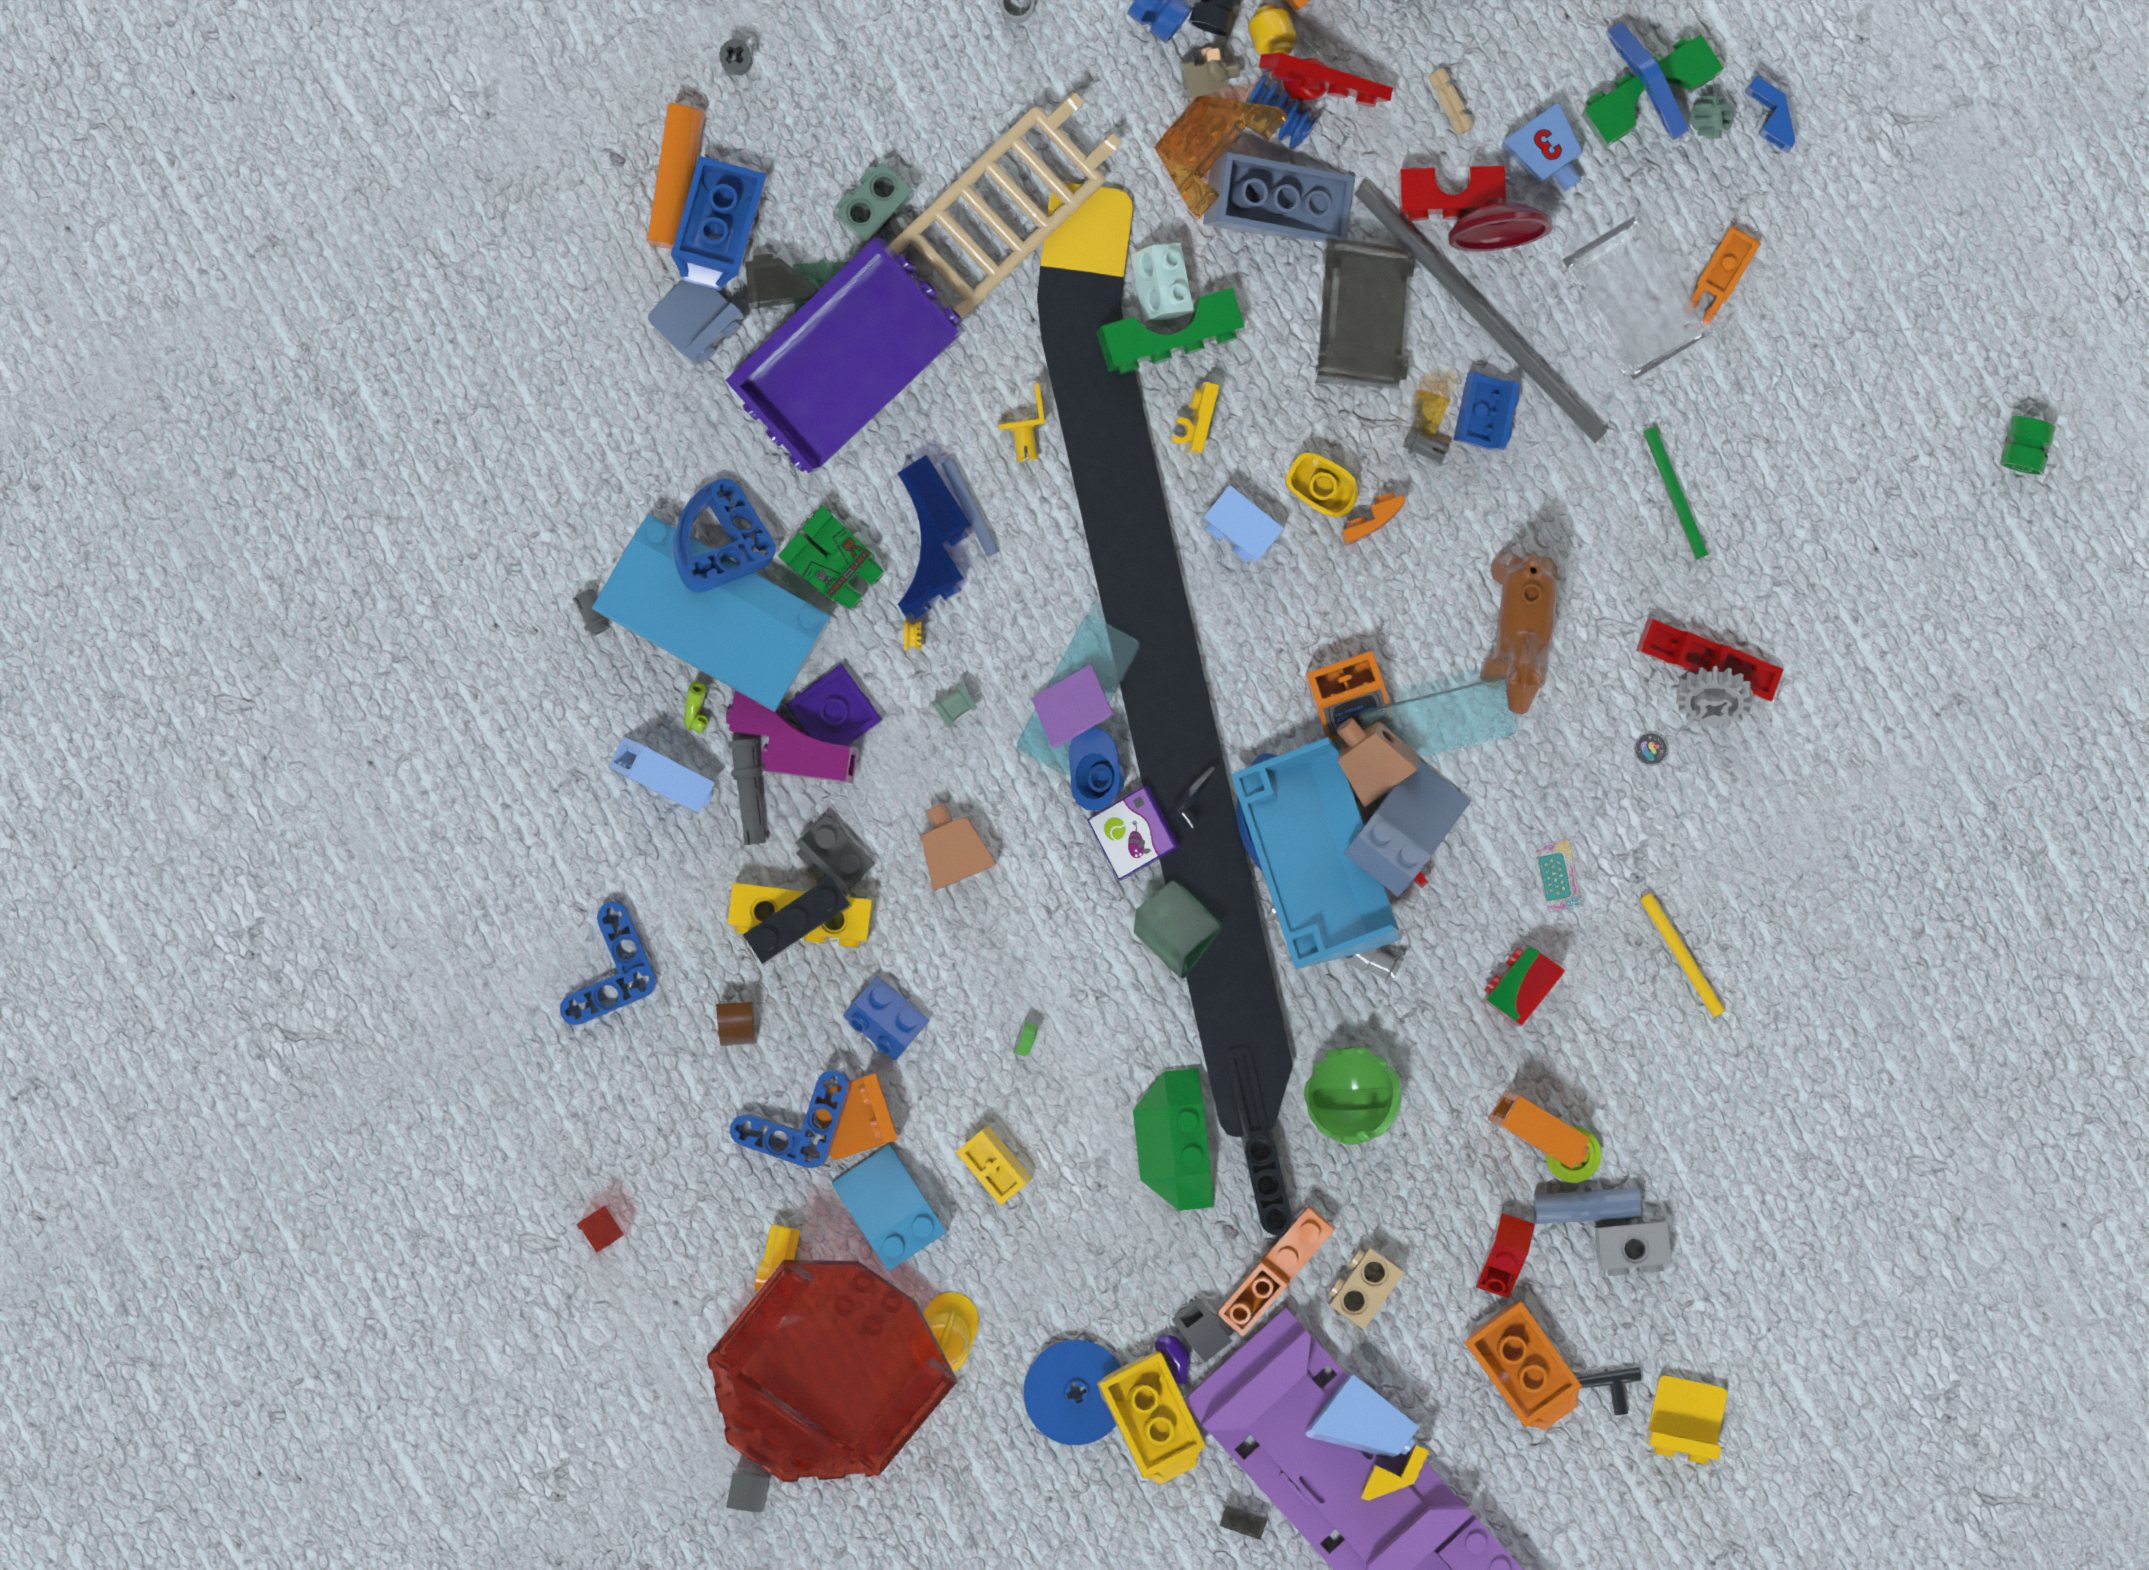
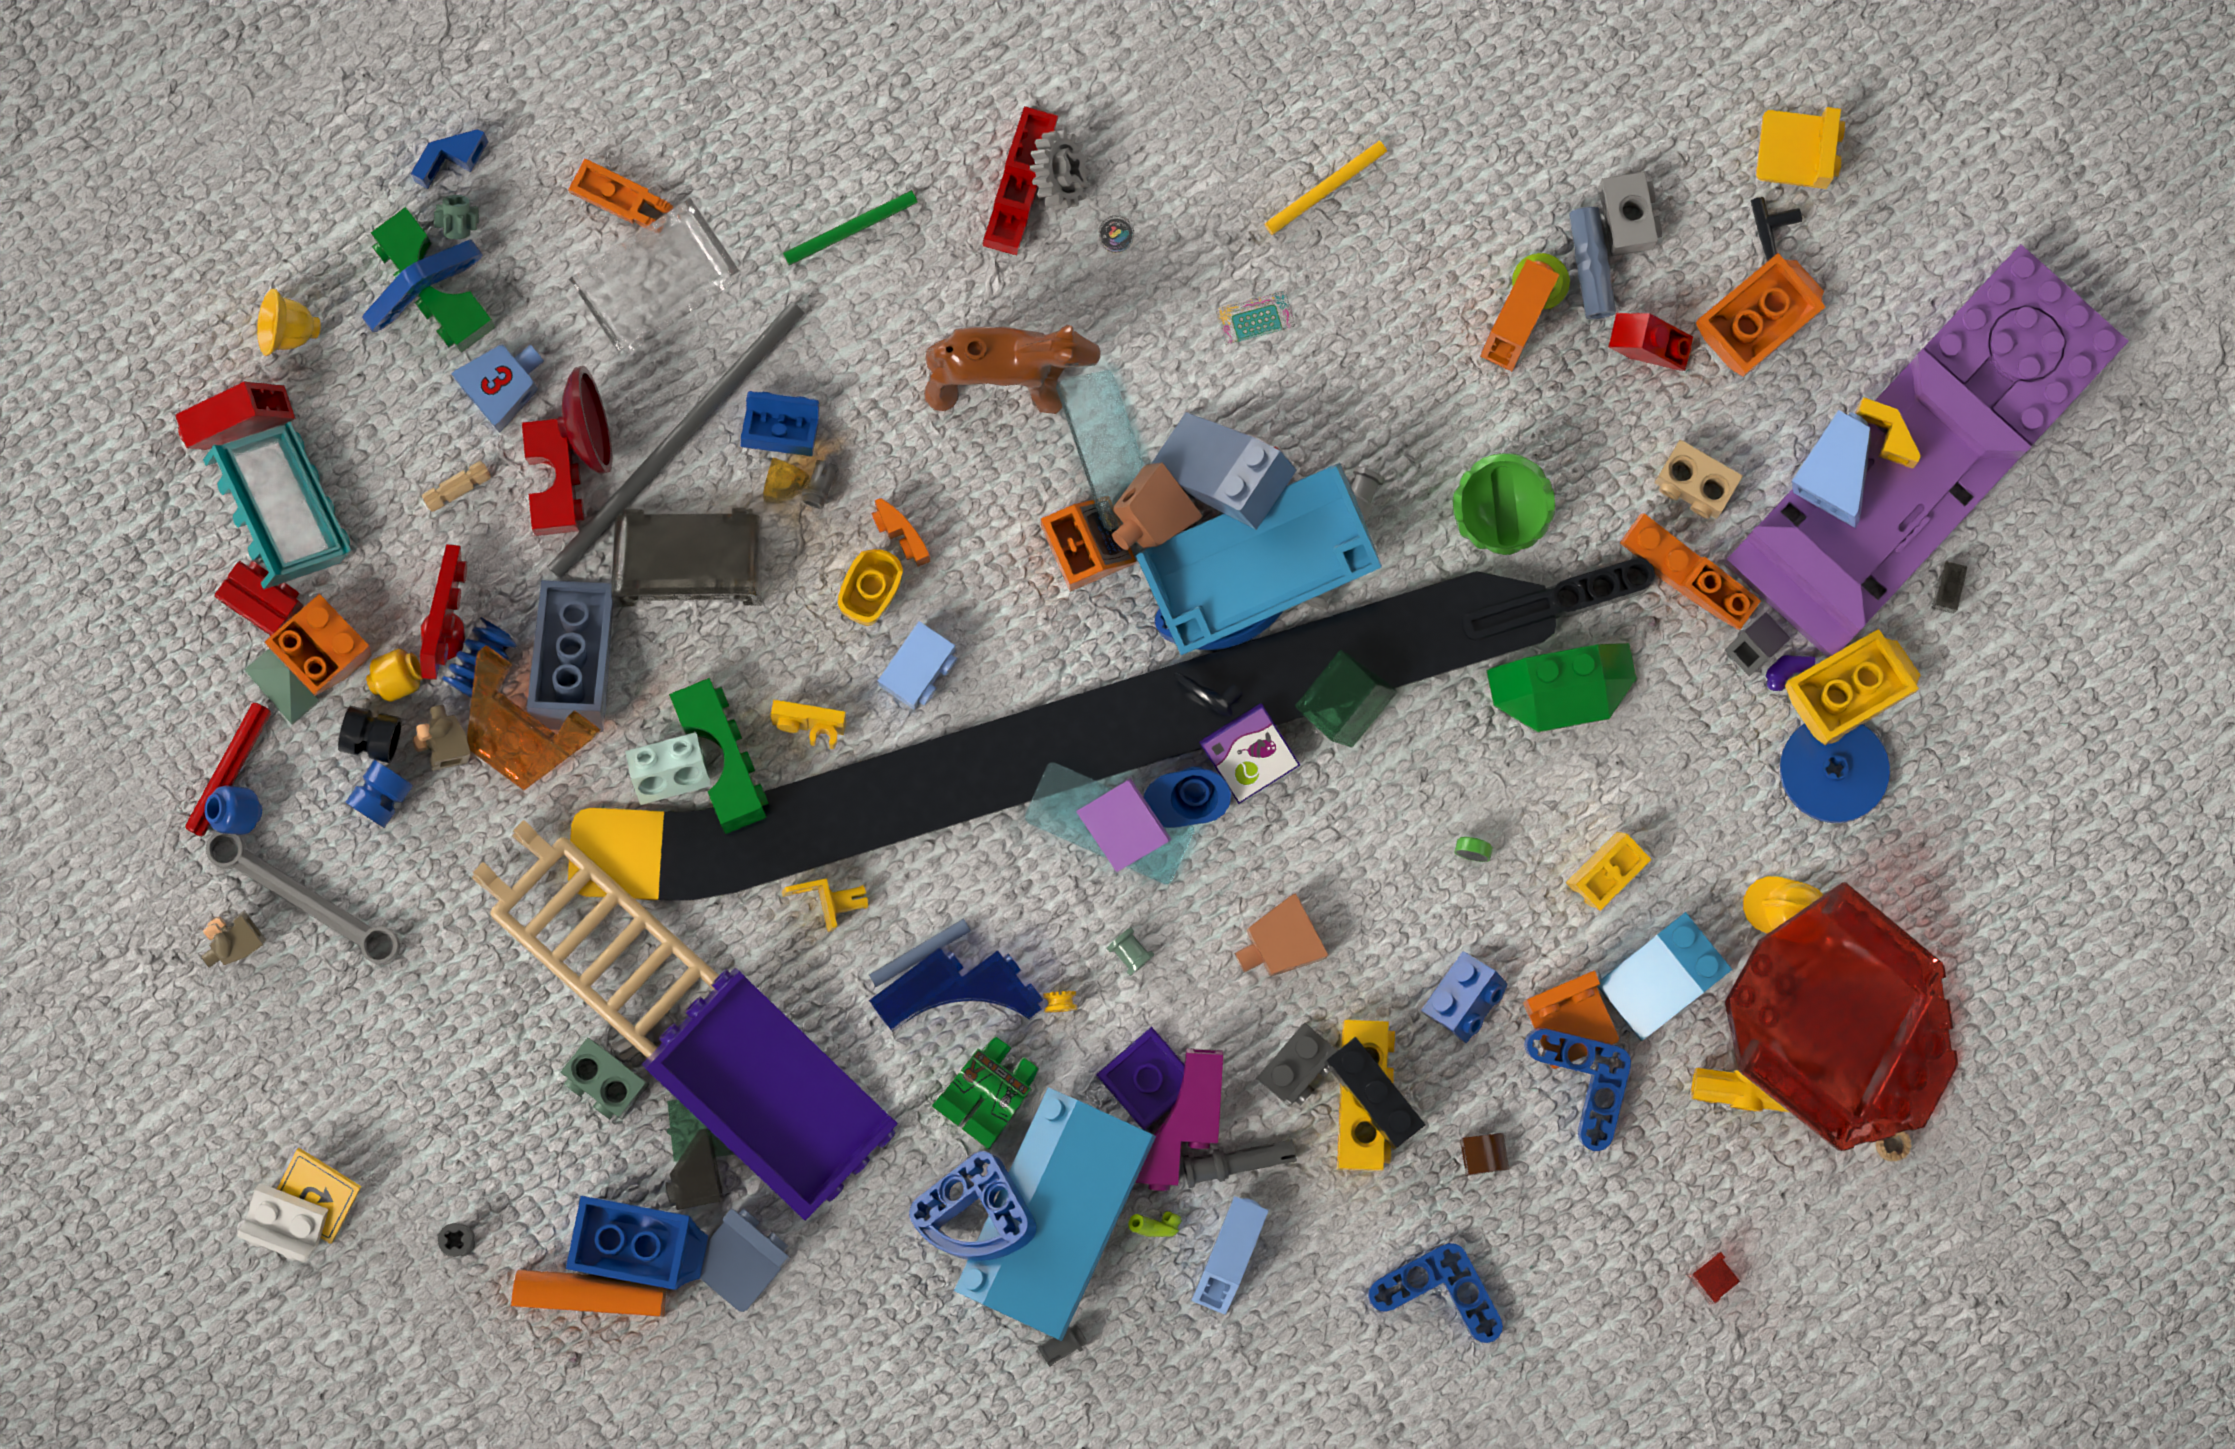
camera: 95 degrees left, 5 degrees down
(702, 1410) = (1894, 1156): none -> tan bush
(747, 1491) = (1973, 1101): dark grey brick -> none
(1522, 985) = (1373, 341): red slope -> none

